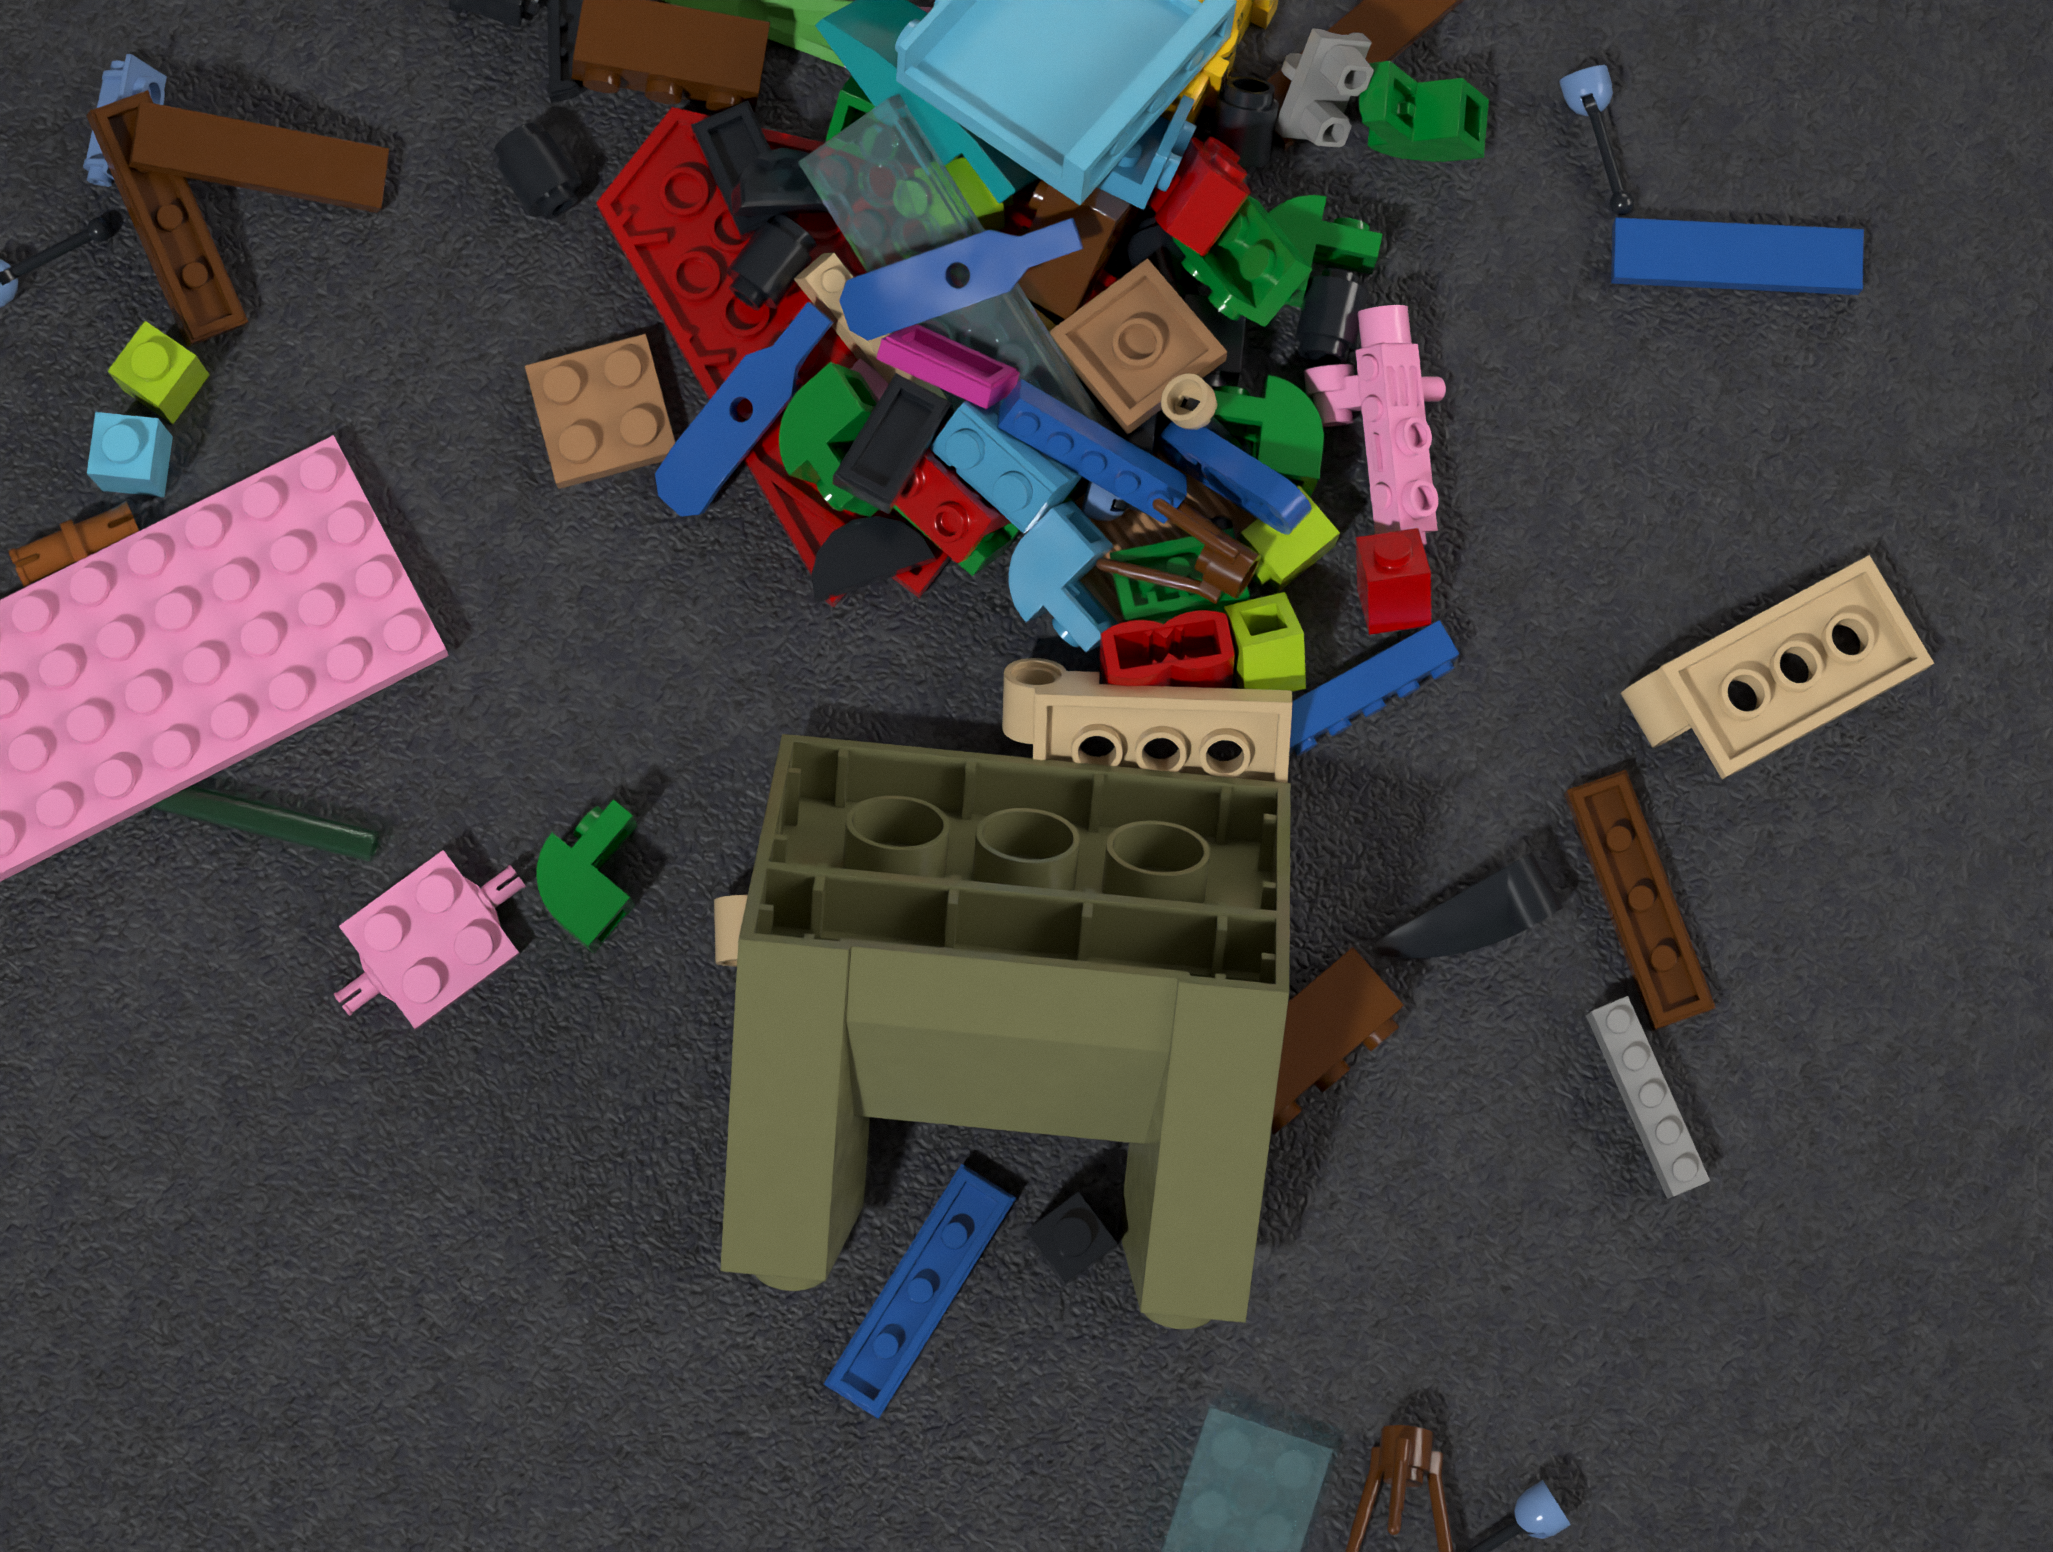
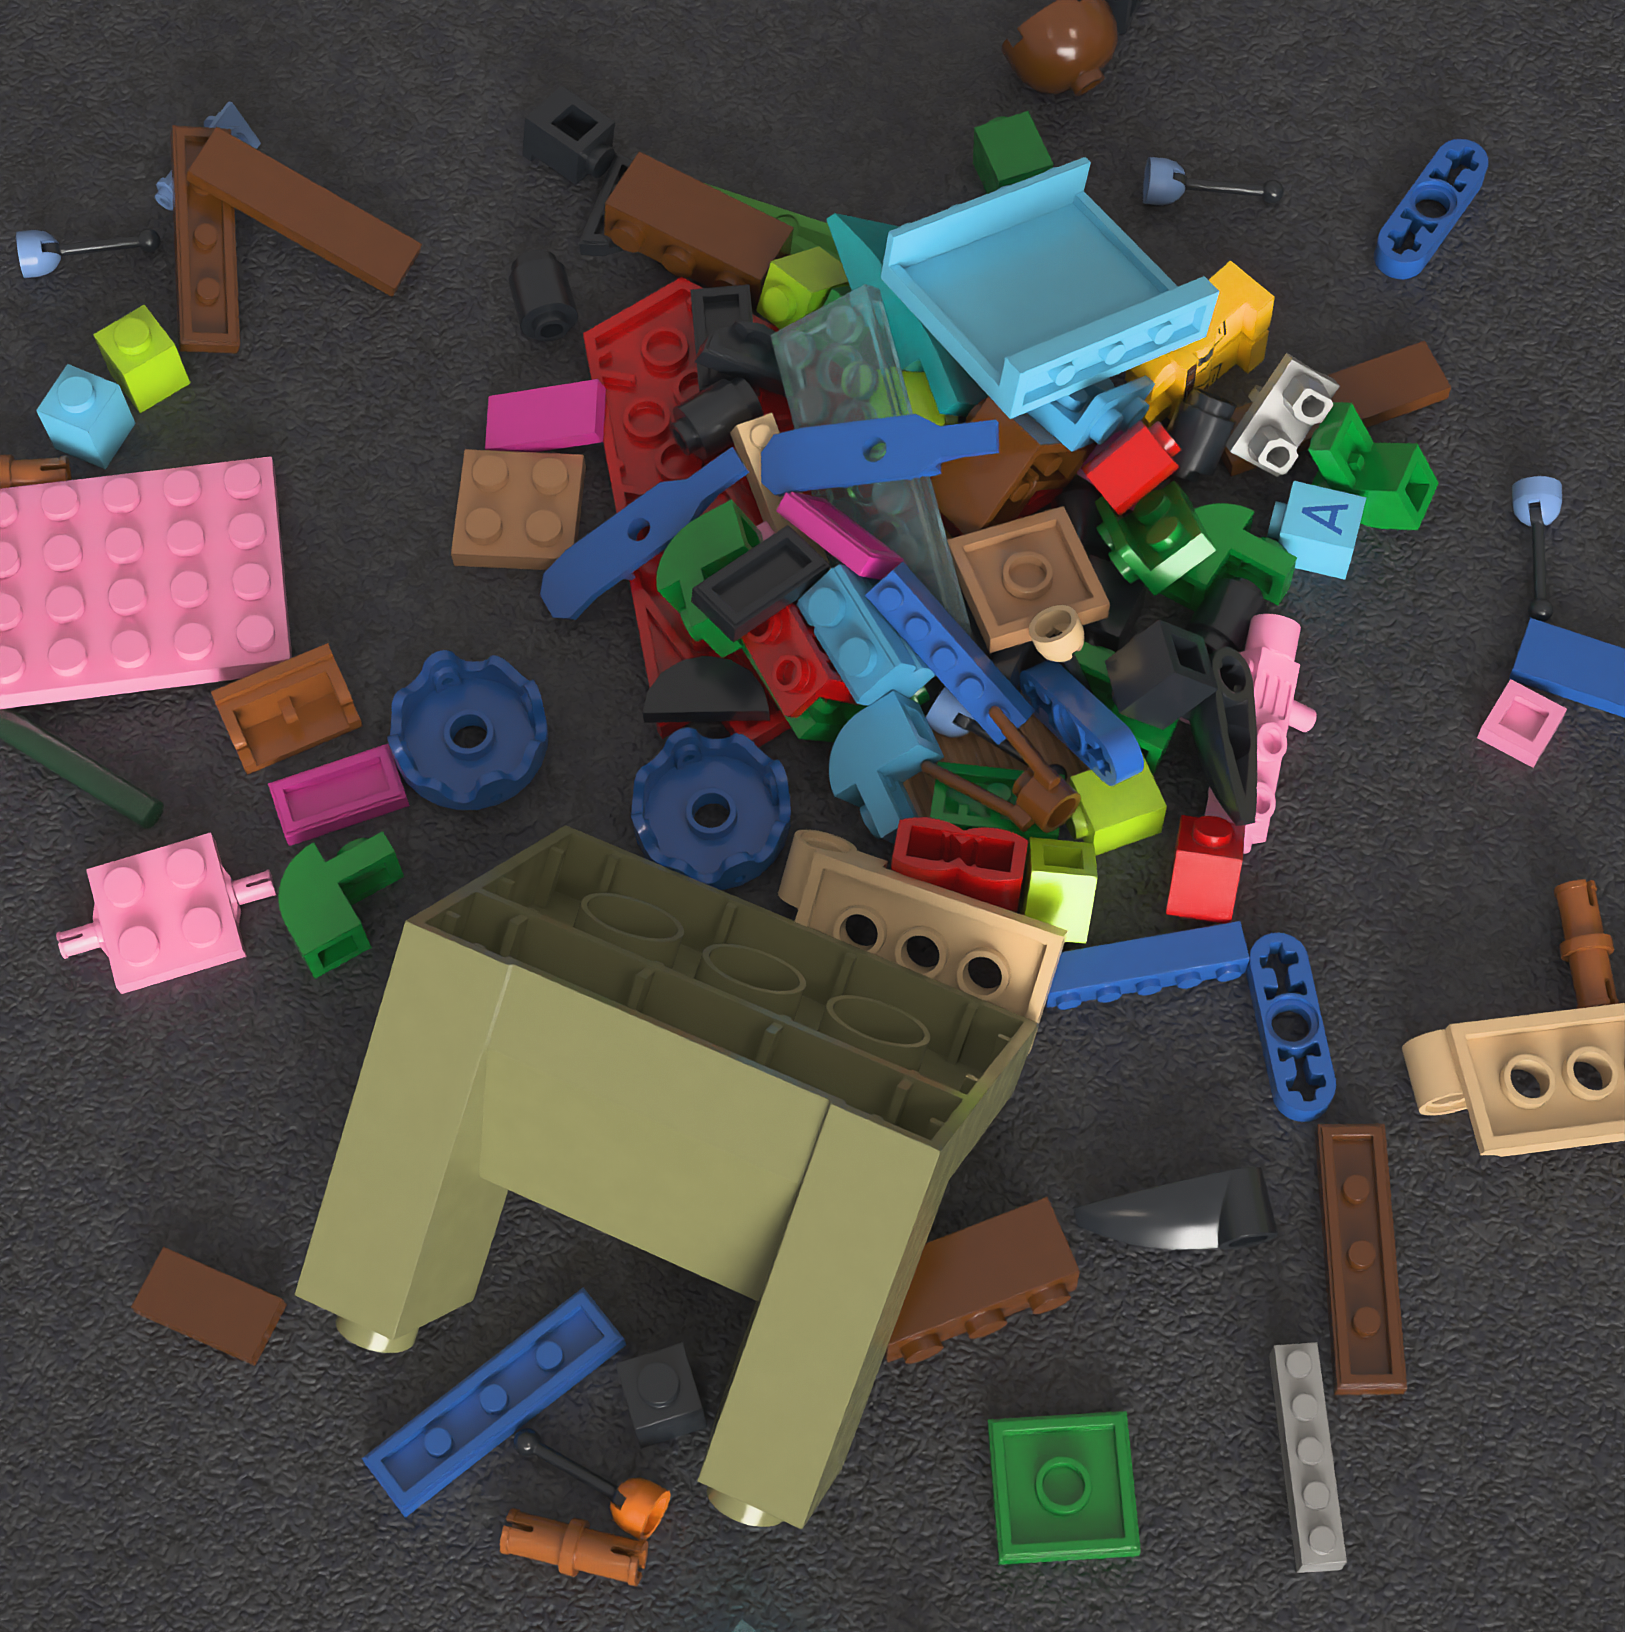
camera: 25 degrees right, 15 degrees down
(462, 699) = (287, 708): none -> dark orange hinge
(544, 766) = (338, 794): none -> dark pink tile
(594, 308) = (546, 418): none -> dark pink tile
(627, 1295) = (209, 1306): none -> reddish brown tile
(642, 622) = (459, 695): none -> blue plate
(804, 90) = (799, 285): none -> lime brick
(903, 627) = (704, 772): none -> blue plate
(1041, 1396) = (574, 1547): none -> dark orange pin
(1079, 1339) = (634, 1505): none -> hinge
(1299, 413) = (1161, 674): none -> black brick
(1361, 420) = (1227, 736): none -> black piece
(1389, 188) = (1318, 528): none -> medium azure brick
(1445, 1195) = (1063, 1488): none -> green tile
(1478, 668) = (1281, 1075): none -> blue beam
(1637, 328) = (1521, 723): none -> bright pink tile
(1758, 539) = (1586, 944): none -> dark orange pin

